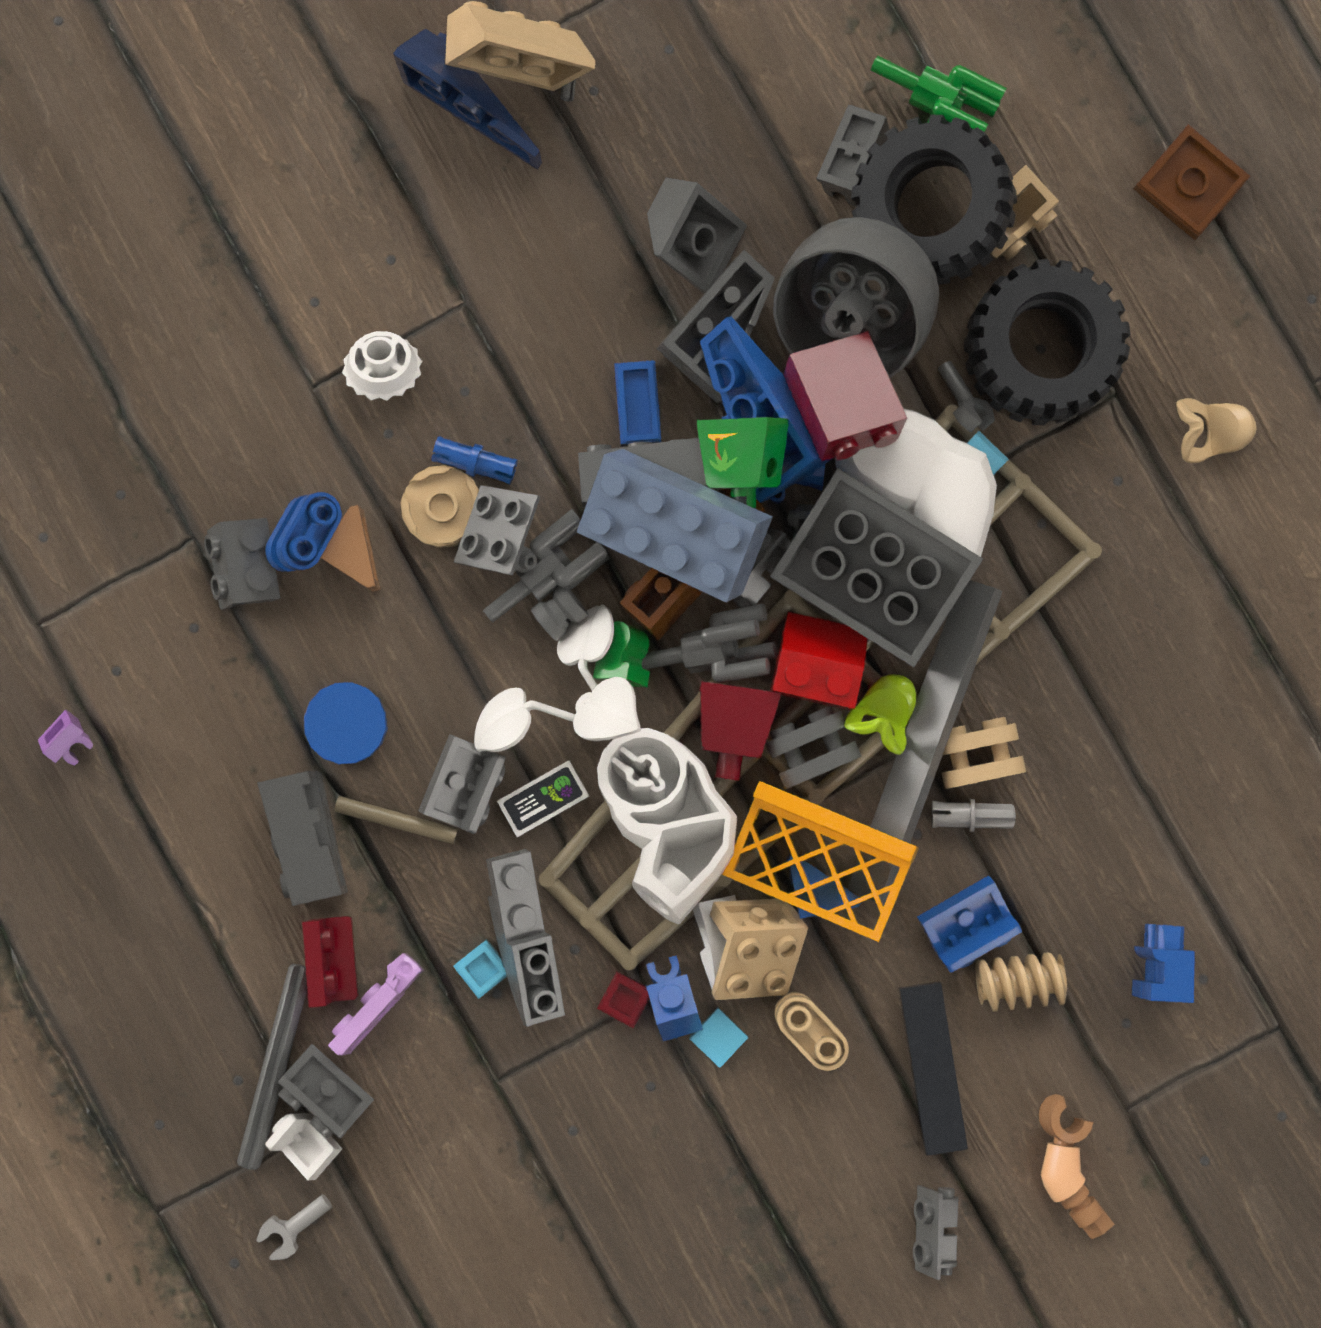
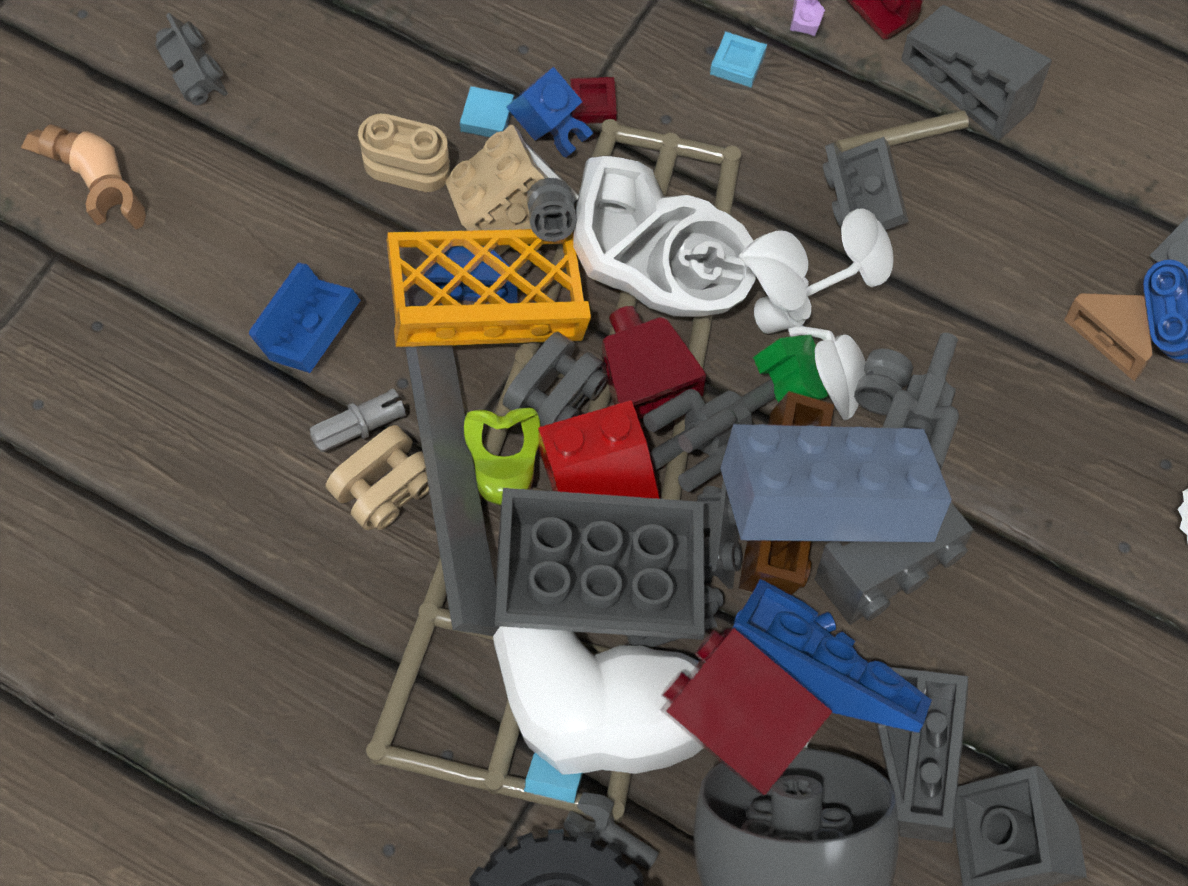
camera: 150 degrees right, 20 degrees down
(345, 723) = (1008, 186): blue tile -> none
(439, 505) = (1064, 423): tan tile -> none
(474, 460) = (1066, 480): blue pin -> none
(498, 532) = (996, 407): hinge -> none
(522, 939) = (720, 90): slope -> none
(543, 798) = (787, 208): tile -> none
(637, 402) = (946, 630): blue tile -> none
(737, 887) = (551, 209): none -> dark grey wheel
(743, 454) = (811, 593): green torso -> none
(933, 1068) = (269, 190): black tile -> none
(1021, 980) = (222, 294): tan piece -> none
(1167, 966) = (85, 372): blue hips -> none

